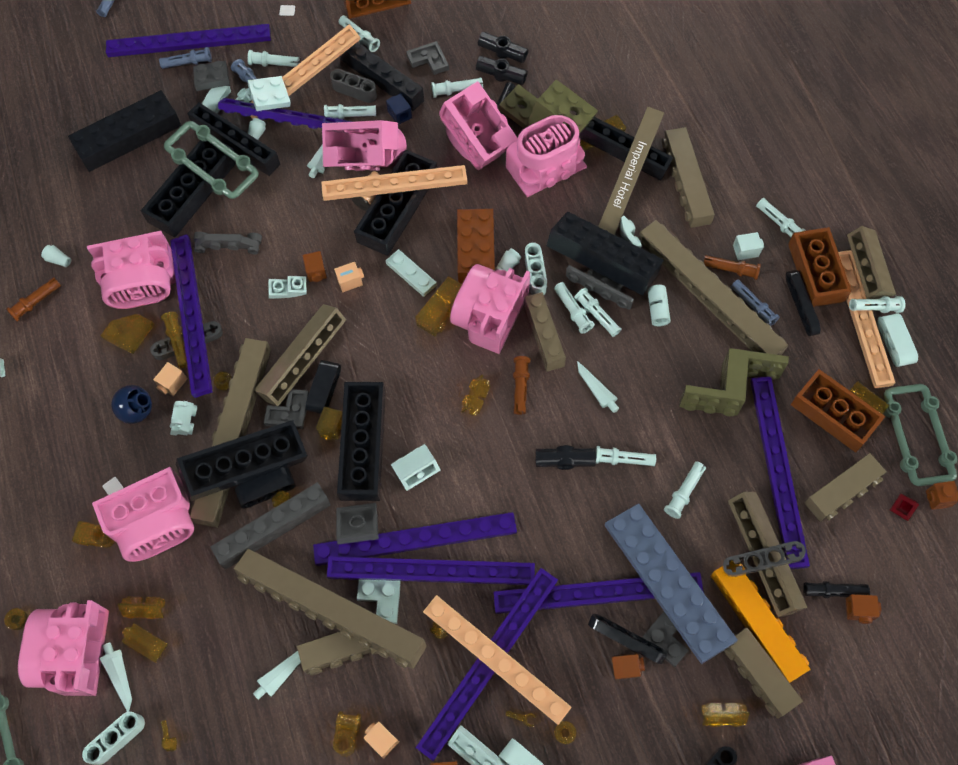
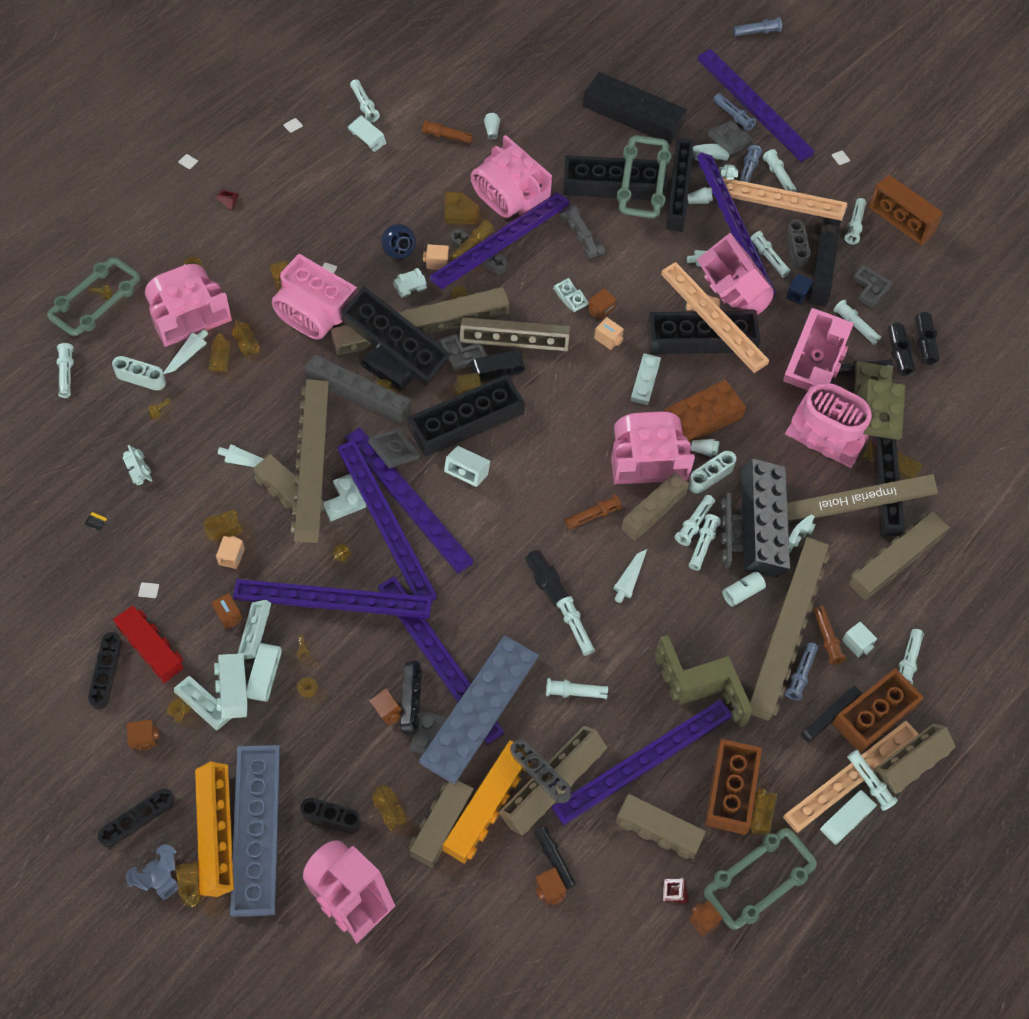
camera: 55 degrees right, 5 degrees down
(269, 93) = (737, 183): light aqua plate -> none
(438, 309) = (613, 410): clear yellow brick -> none
(471, 401) = (569, 481): clear yellow hinge -> none
(497, 660) = (336, 602): light nougat plate -> none

